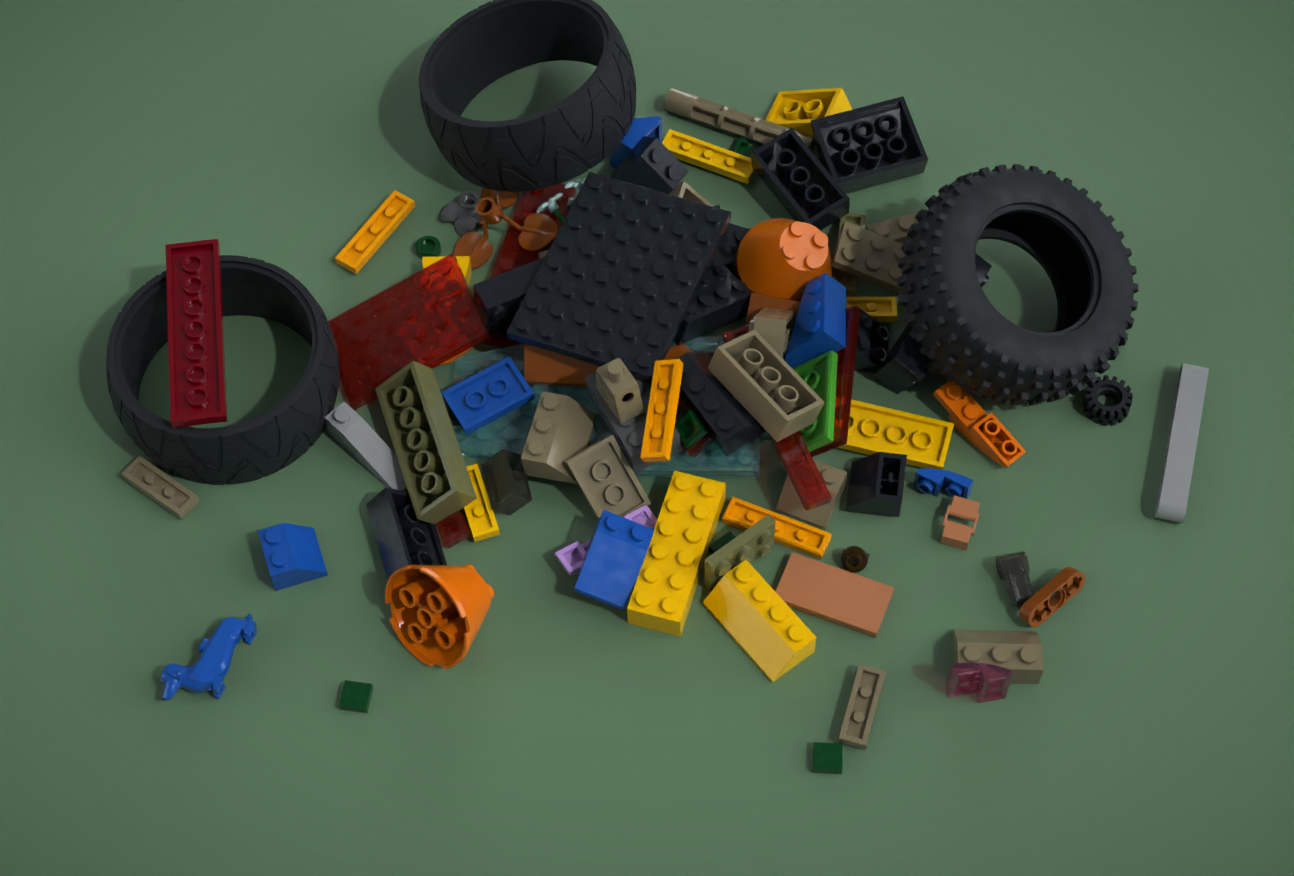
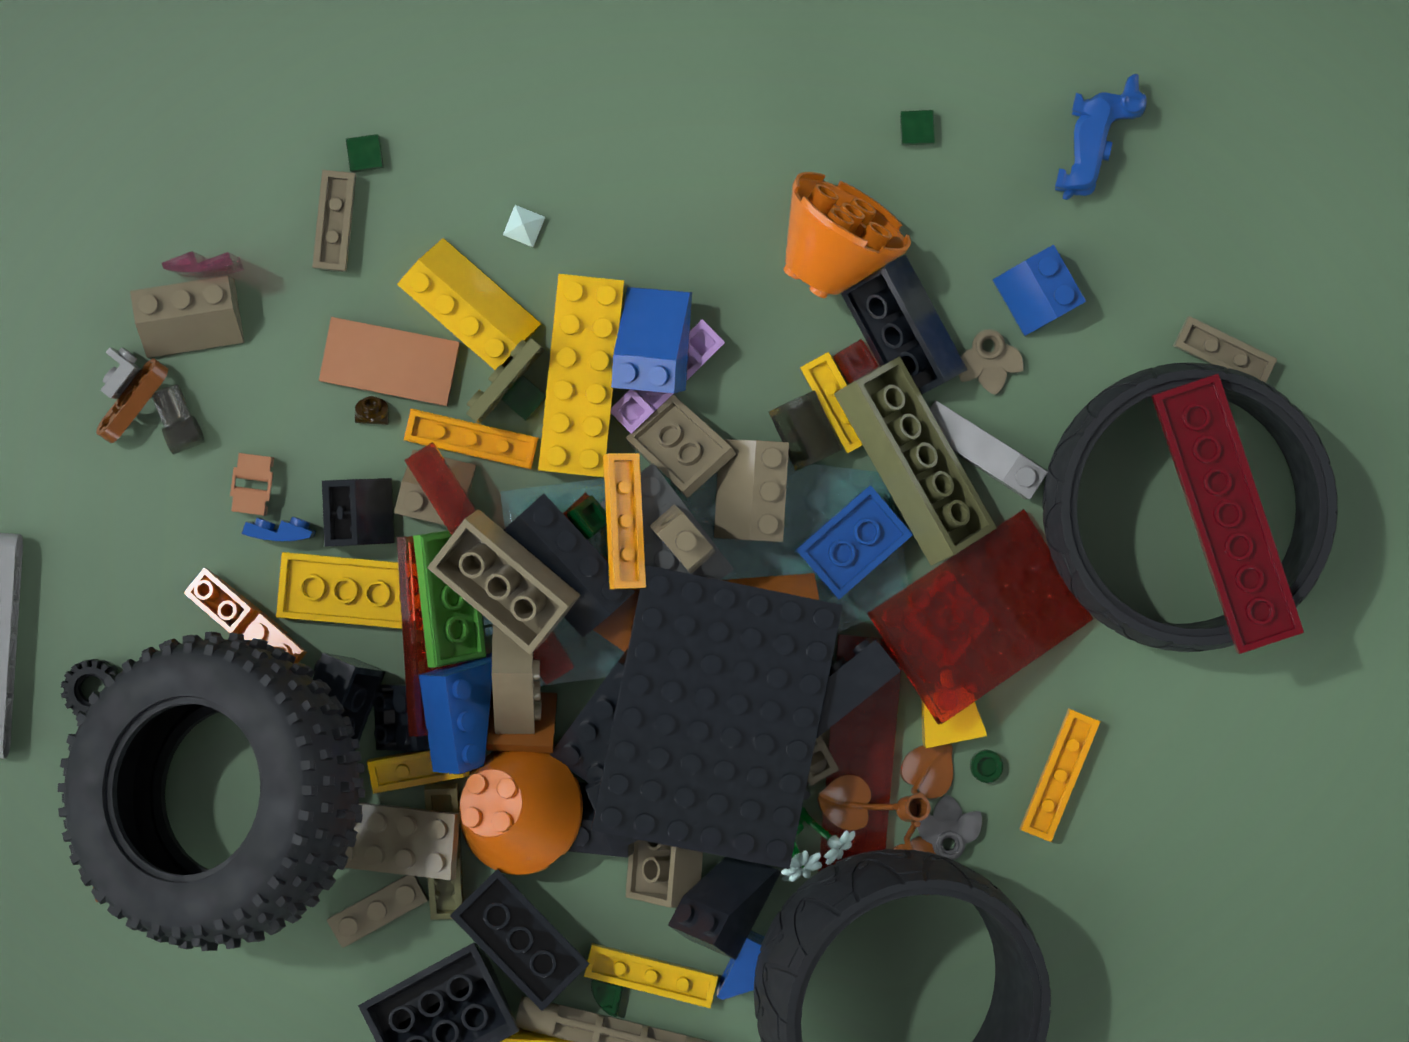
camera: 165 degrees right, 30 degrees up
(345, 511) = (991, 366): none -> dark tan plate
(702, 678) = (524, 226): none -> light aqua slope
(1058, 618) = (119, 378): none -> light grey bracket

